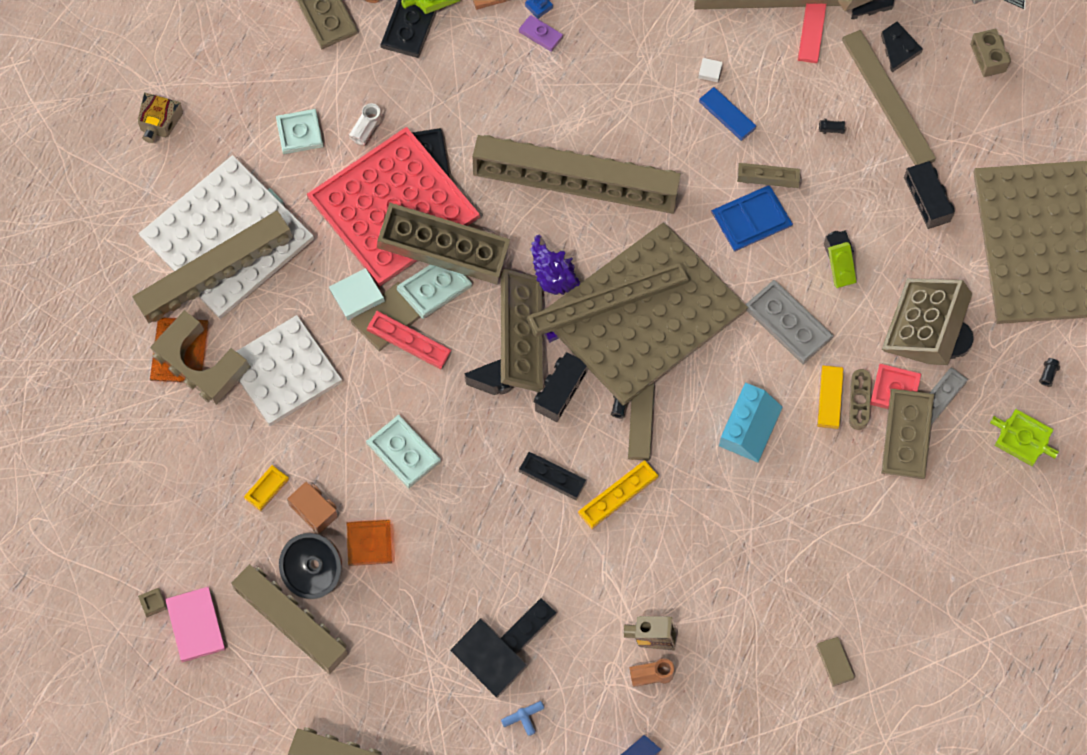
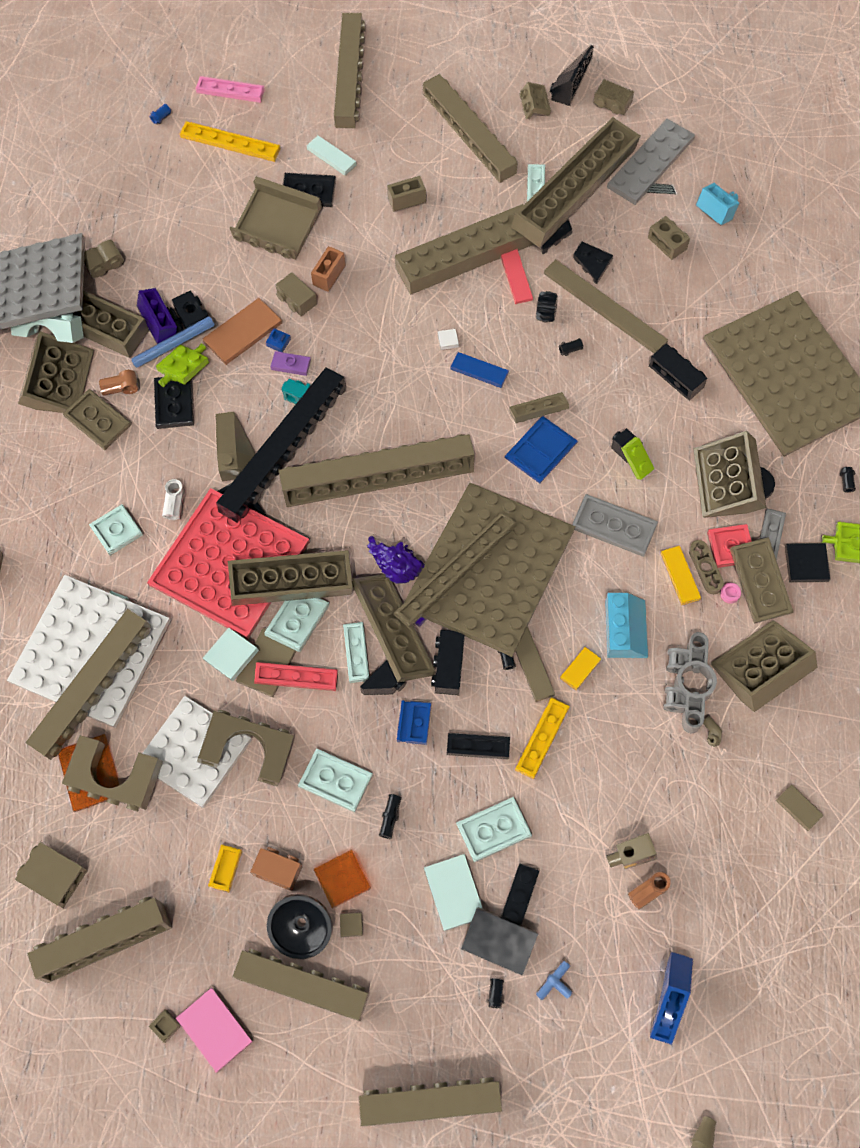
camera: 20 degrees left, 0 degrees up
(106, 426) = (51, 874): none -> dark tan panel
(126, 501) = (98, 940): none -> dark tan brick
(321, 358) = (274, 742): none -> dark tan arch
(359, 586) = (351, 925): none -> dark tan tile
(439, 505) = (390, 816): none -> black pin
(446, 97) = (232, 446): none -> dark tan wedge
(461, 706) = (495, 993): none -> black pin
(466, 596) = (453, 891): none -> light aqua tile
(477, 340) = (356, 652): none -> light aqua tile
(494, 111) = (280, 445): none -> black brick
(501, 429) = (414, 722): none -> blue plate
(531, 558) = (493, 829): none -> light aqua tile
(533, 64) = (293, 390): none -> teal brick
(686, 445) = (580, 668): none -> yellow tile
(788, 557) = (715, 732): none -> dark tan arm
(795, 480) = (680, 662): none -> light grey piece
(825, 75) = (546, 306): none -> black gear
(869, 516) = (765, 665): none -> dark tan slope
(871, 434) = (730, 593): none -> bright pink tile
(964, 436) = (807, 562): none -> black tile
(1060, 37) = (718, 203): none -> medium azure brick

